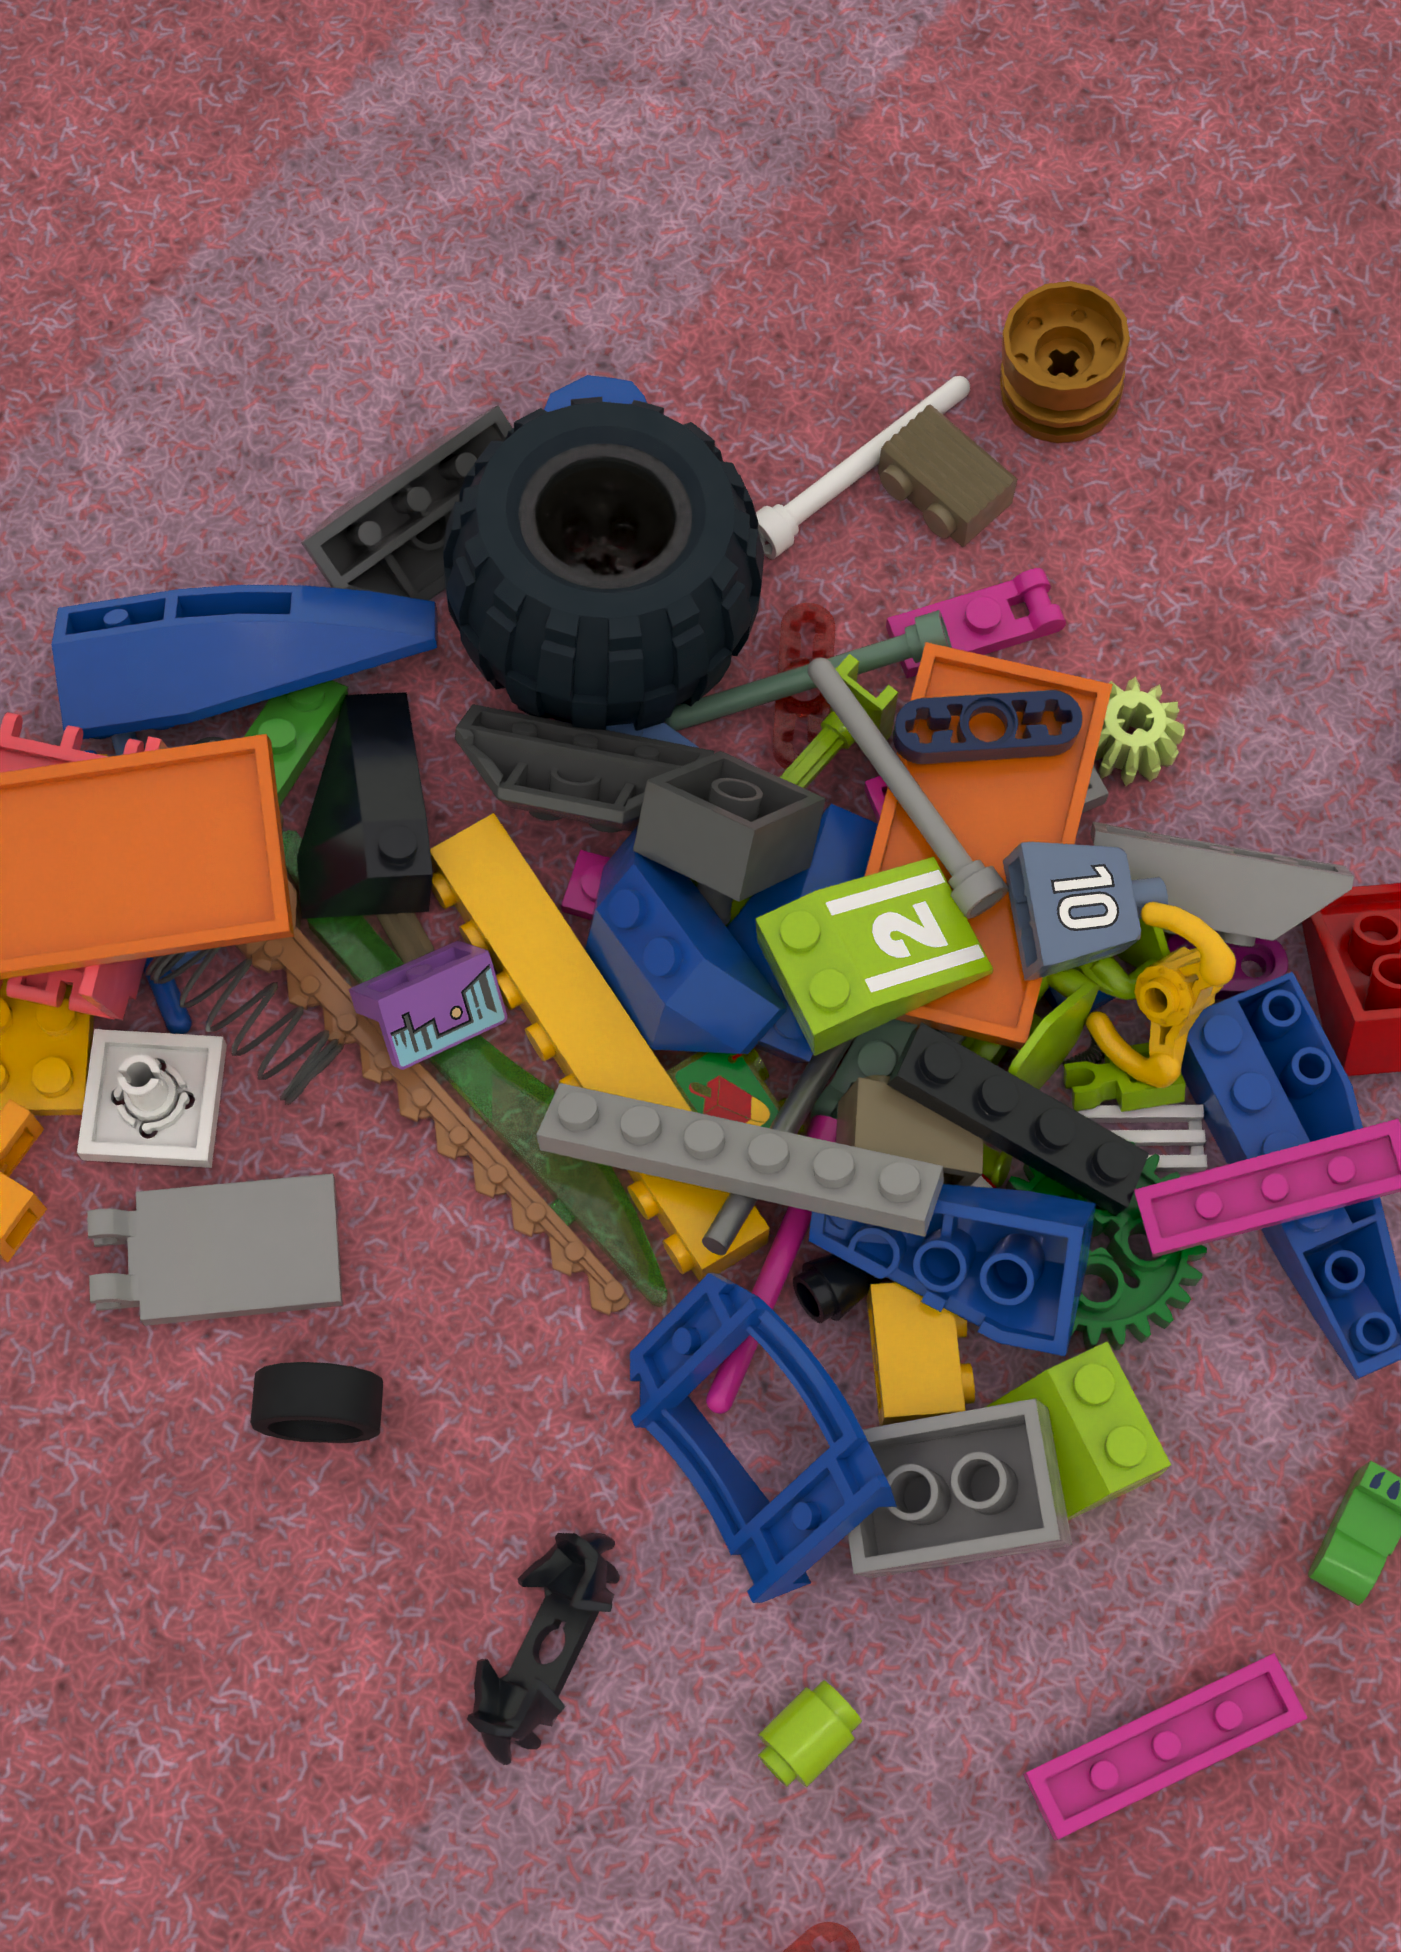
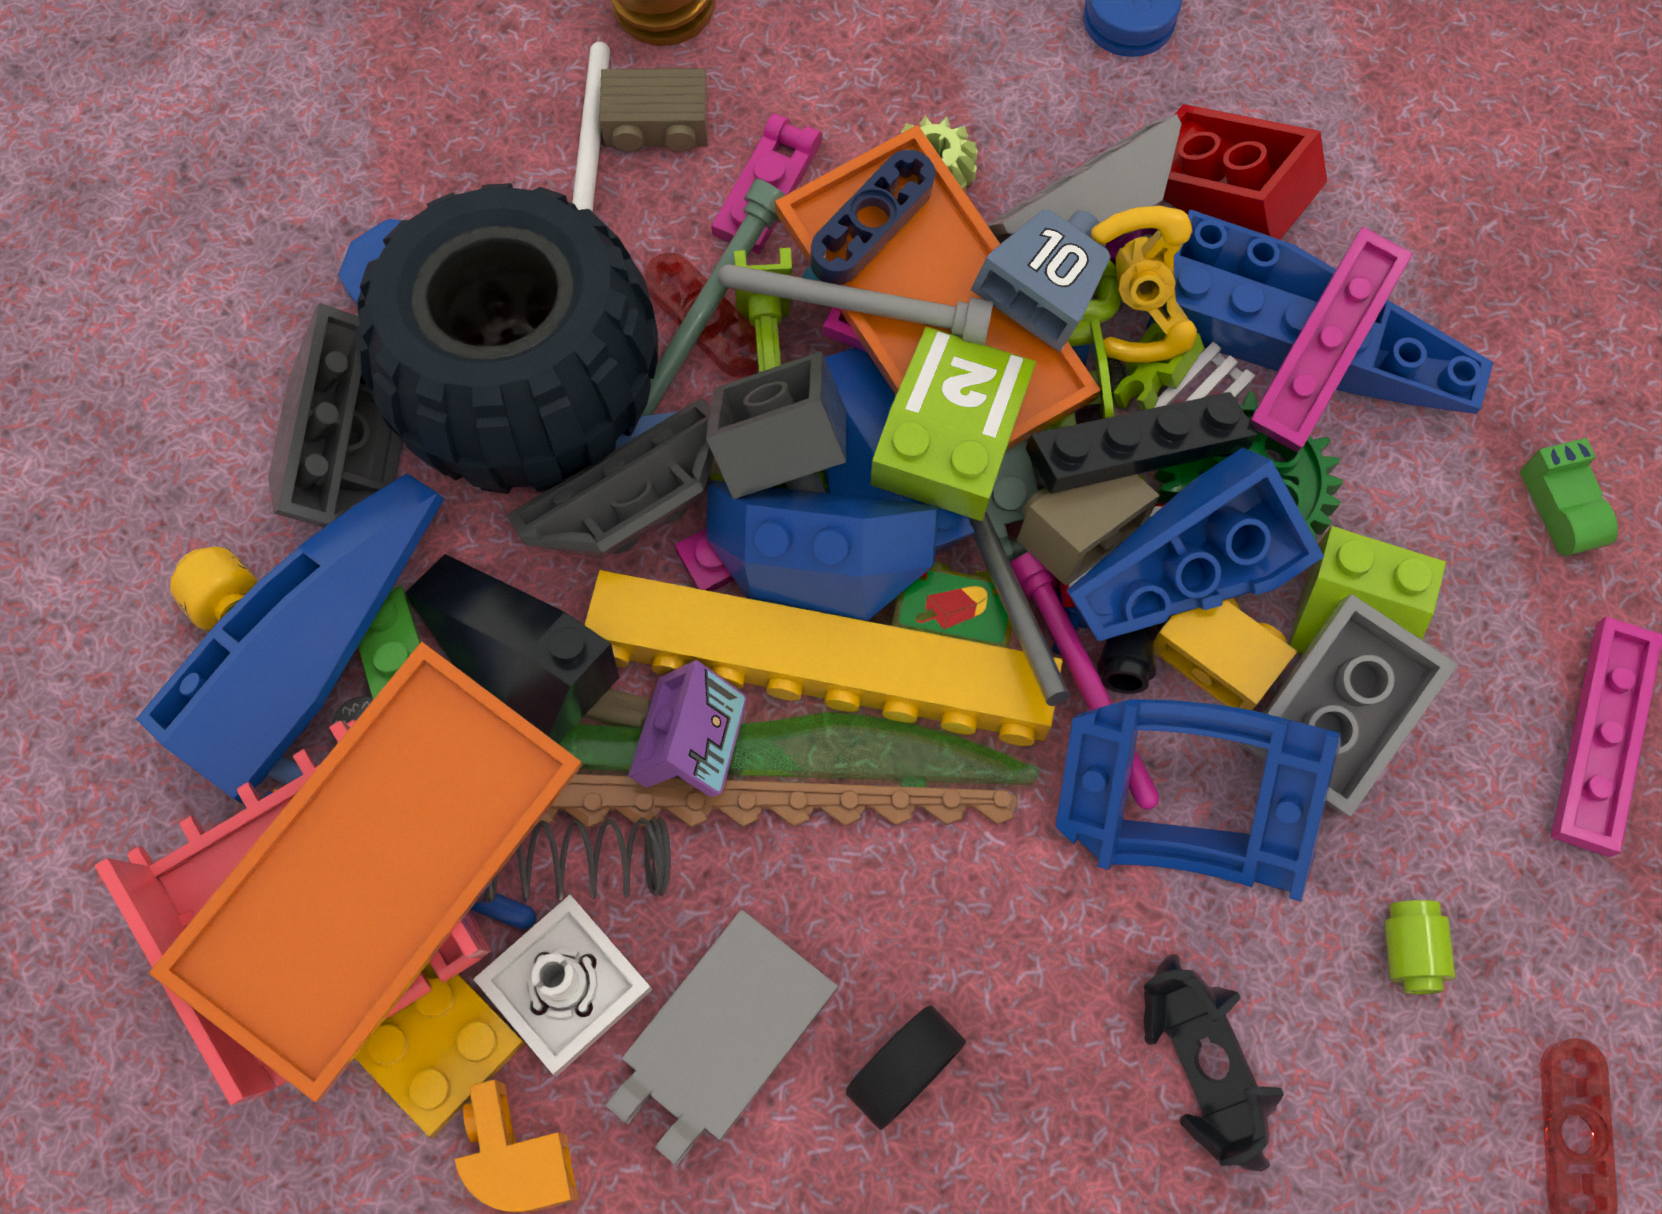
camera: 45 degrees left, 0 degrees up
(212, 554) = (210, 584): none -> yellow head
(742, 1159) = (1012, 628): light grey plate -> none

